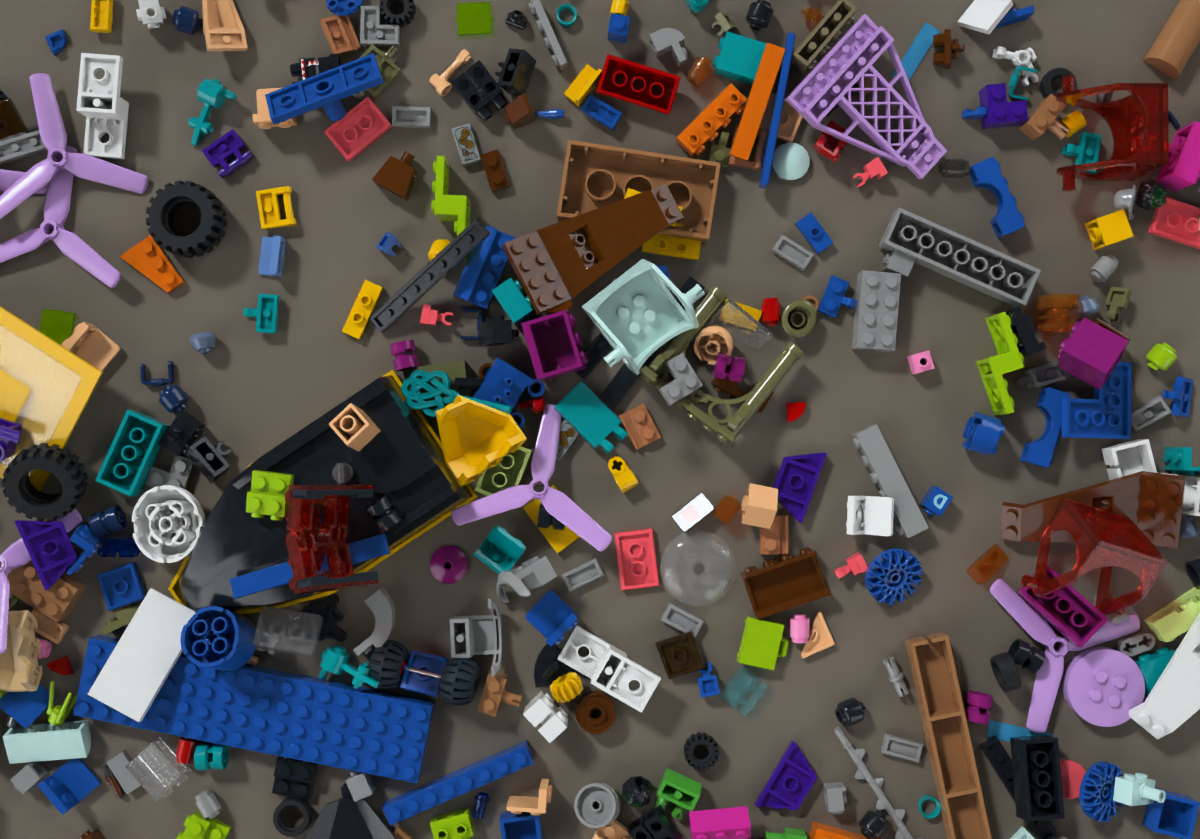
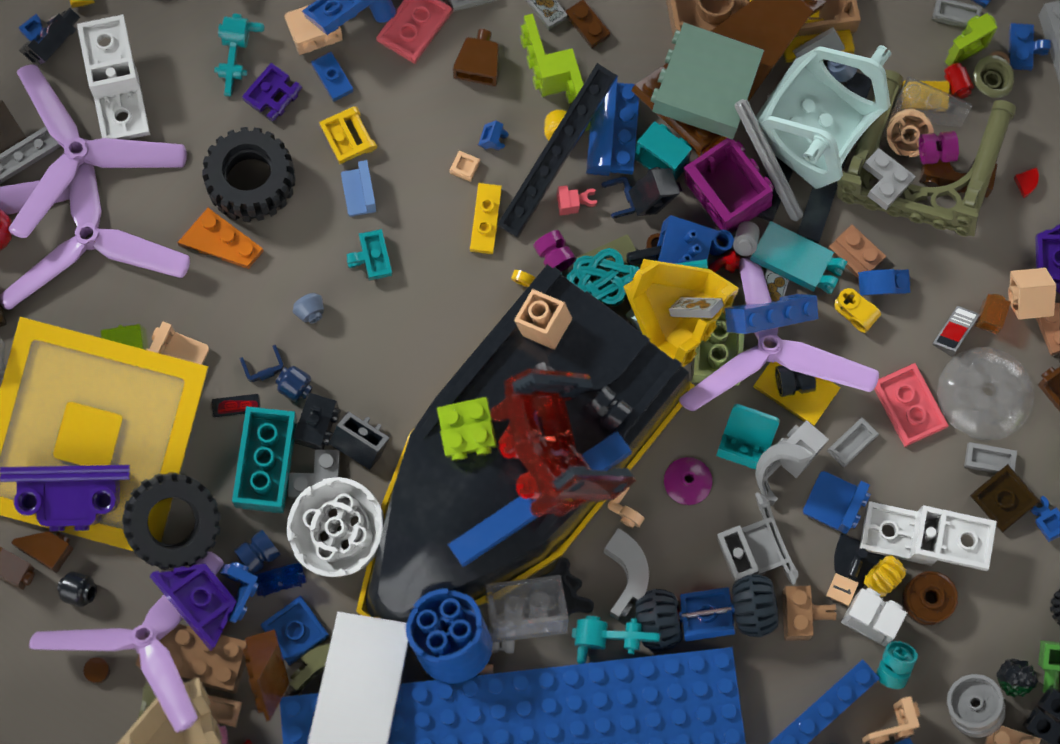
camera: 20 degrees left, 15 degrees down
(64, 55) = (51, 37): none -> black hips
(81, 620) = (266, 671): none -> reddish brown slope
(128, 399) = (234, 405): none -> sticker
(279, 154) = (332, 76): none -> blue plate
(360, 261) = (464, 166): none -> light nougat tile
(374, 368) = (522, 278): none -> yellow tile
(393, 579) = (629, 516): none -> light nougat plate
(488, 444) = (696, 307): none -> light grey tile
(528, 464) = (765, 316): none -> blue arch
(533, 684) = (842, 589): none -> light nougat tile
(550, 756) = (896, 664): none -> teal wheel
(555, 391) = (746, 238): none -> light grey brick
(560, 258) = (706, 80): none -> sand green brick
(589, 337) = (768, 159): none -> light grey axle
(650, 459) = (884, 282): none -> blue brick
(668, 251) = (827, 39): none -> light grey tile
(682, 271) = (840, 71): none -> sand blue cone
(796, 279) = (973, 39): none -> lime plate

